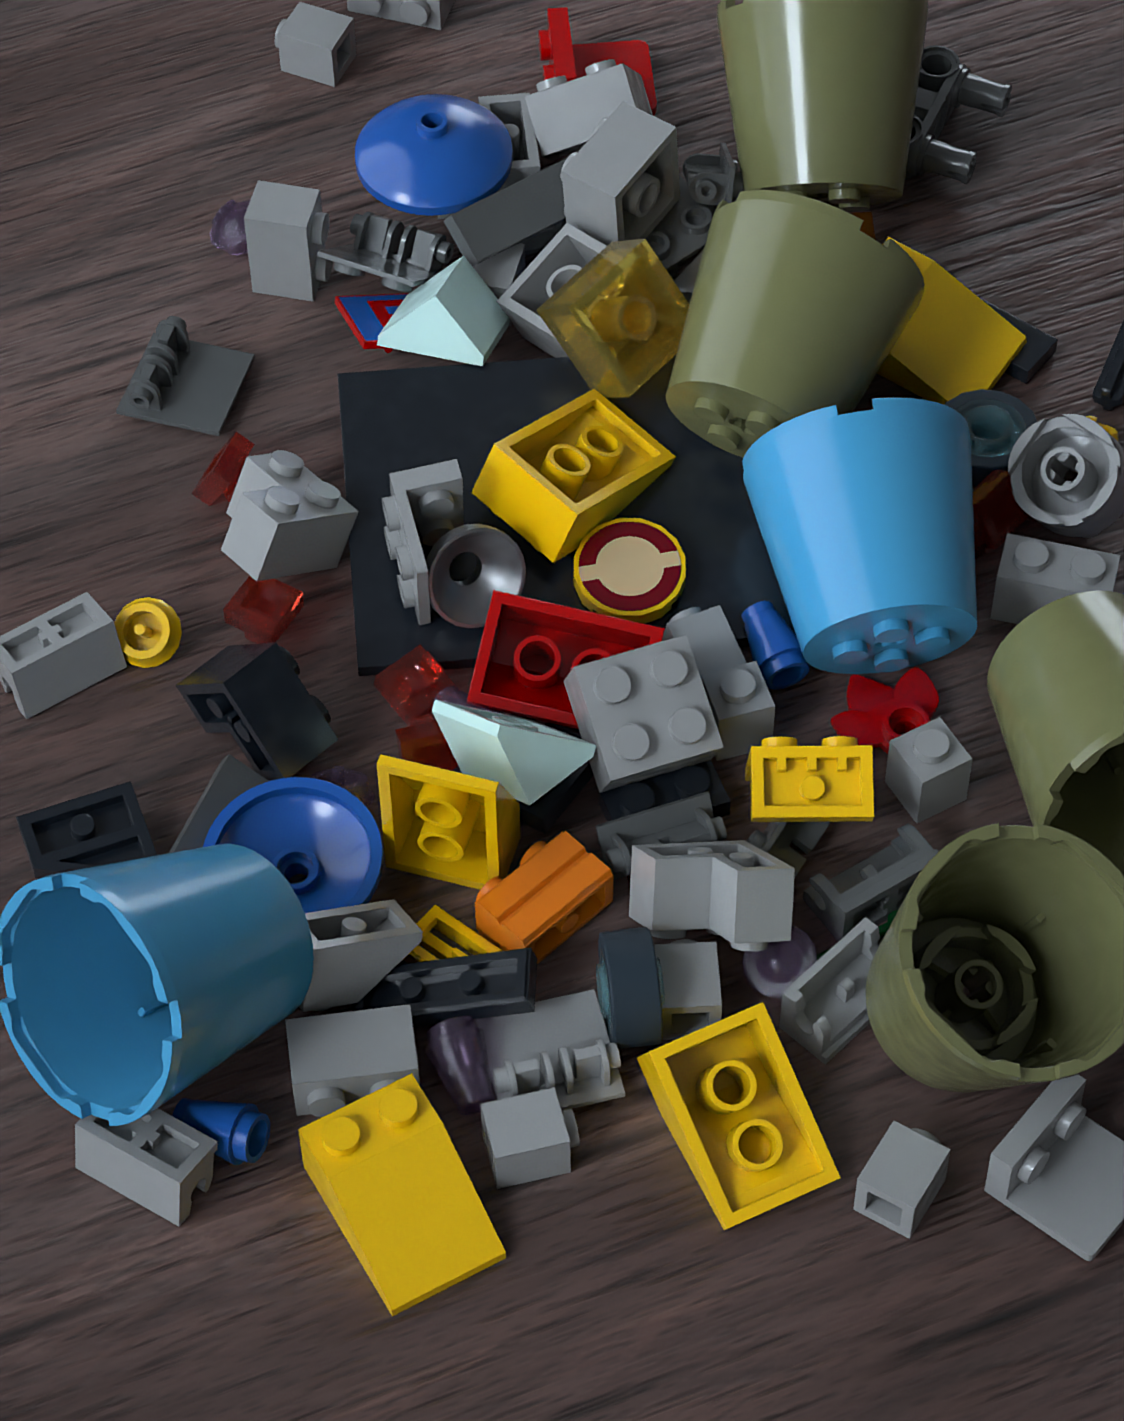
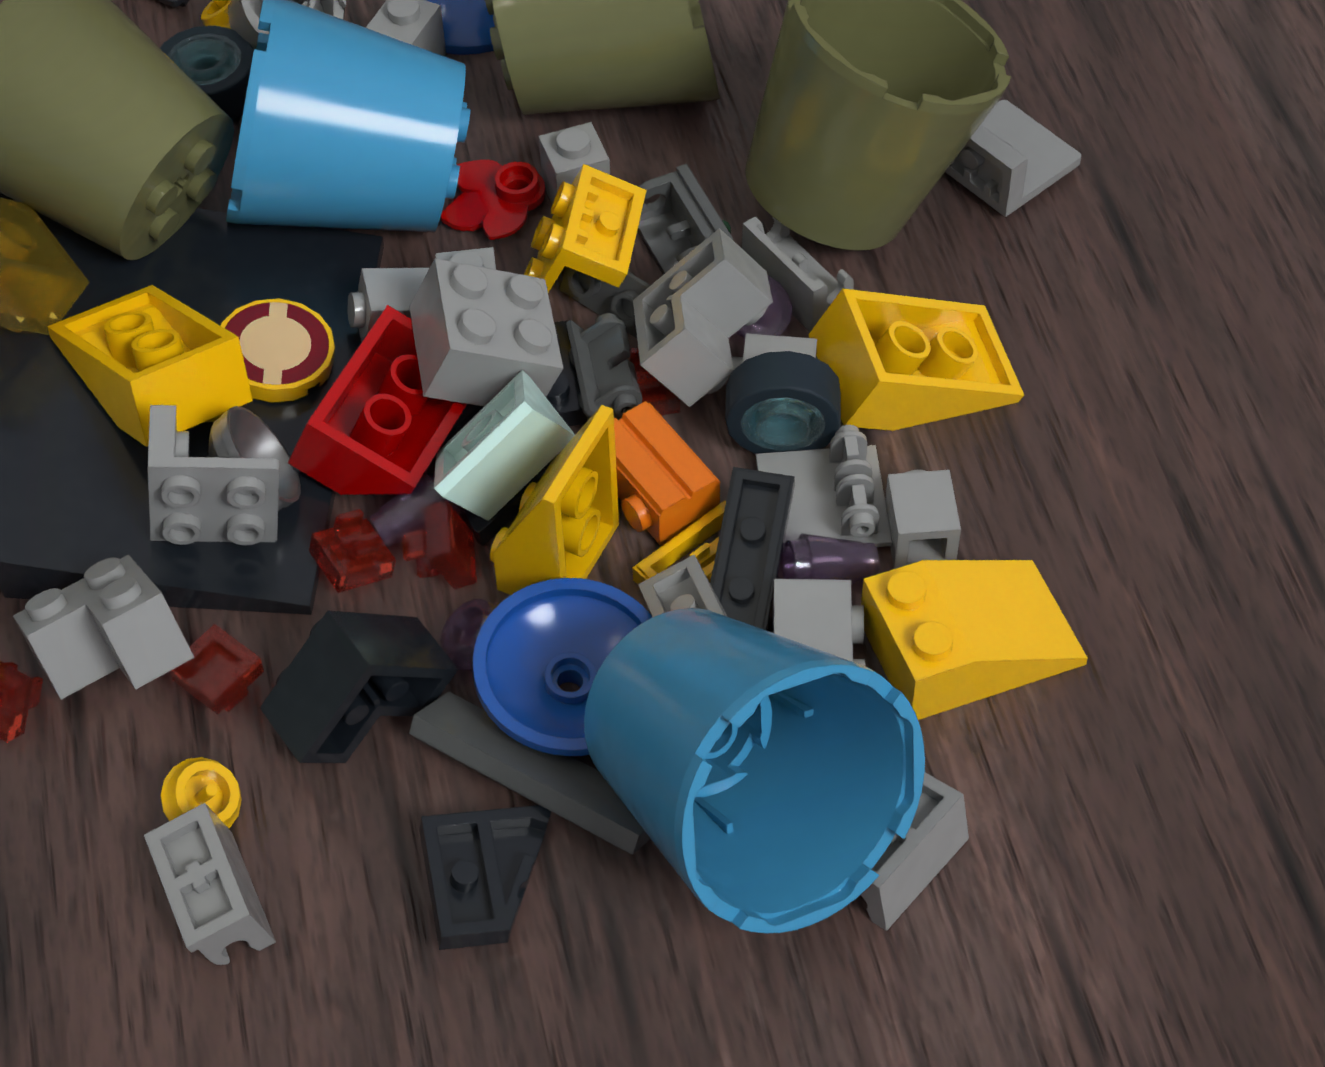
camera: 80 degrees left, 0 degrees up
(773, 646) = (397, 251): blue cone -> none
(902, 1178) = (998, 258): light grey brick -> none

